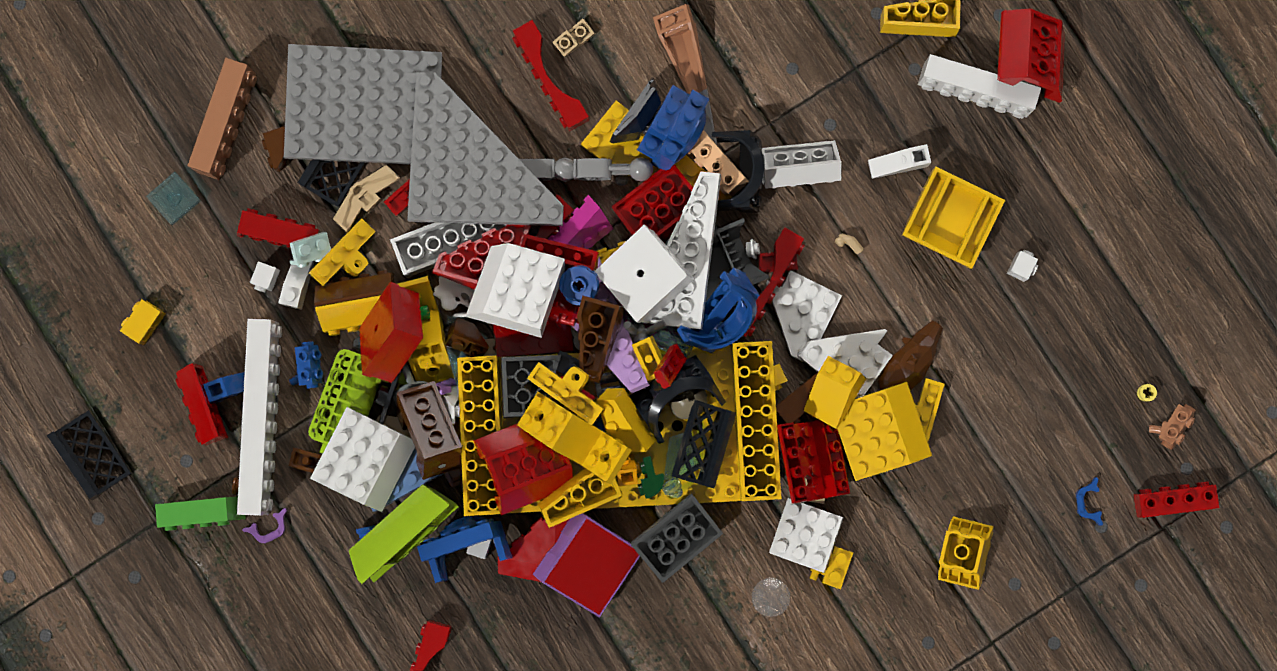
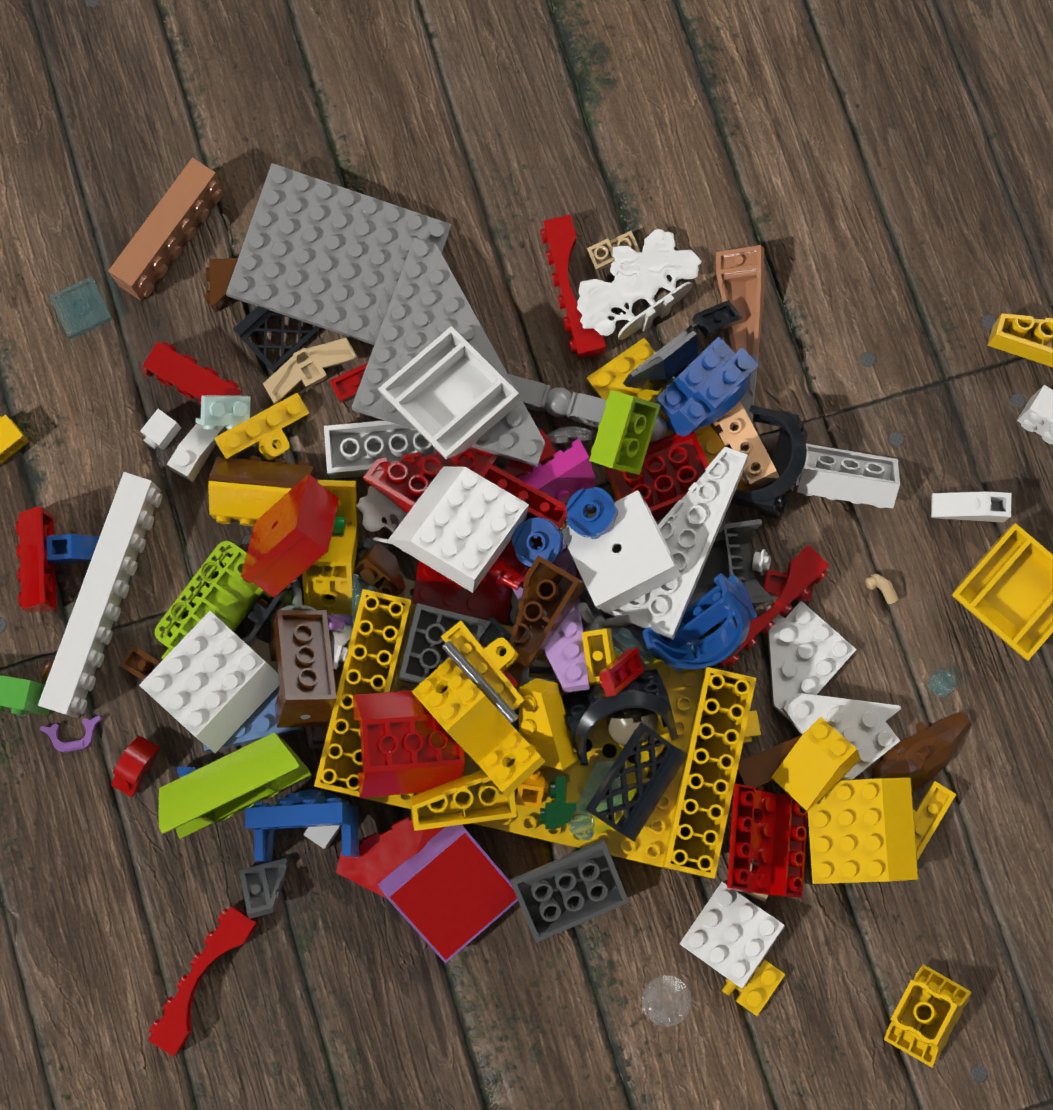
camera: 15 degrees right, 5 degrees down
(308, 366) = (179, 550): blue brick -> none
(322, 537) = (133, 765): none -> red brick
(447, 600) = (263, 886): none -> dark grey wing
(480, 190) = (450, 394): none -> white slope
(566, 404) = (480, 682): none -> dark grey bar
(575, 193) = (561, 435): none -> clear dish
(598, 55) = (637, 278): none -> white plant
(609, 241) = (593, 526): none -> blue plate
(621, 181) = (624, 432): none -> lime brick
(668, 70) = (717, 318): none -> black plate
(912, 302) = (942, 683): none -> clear light blue tile

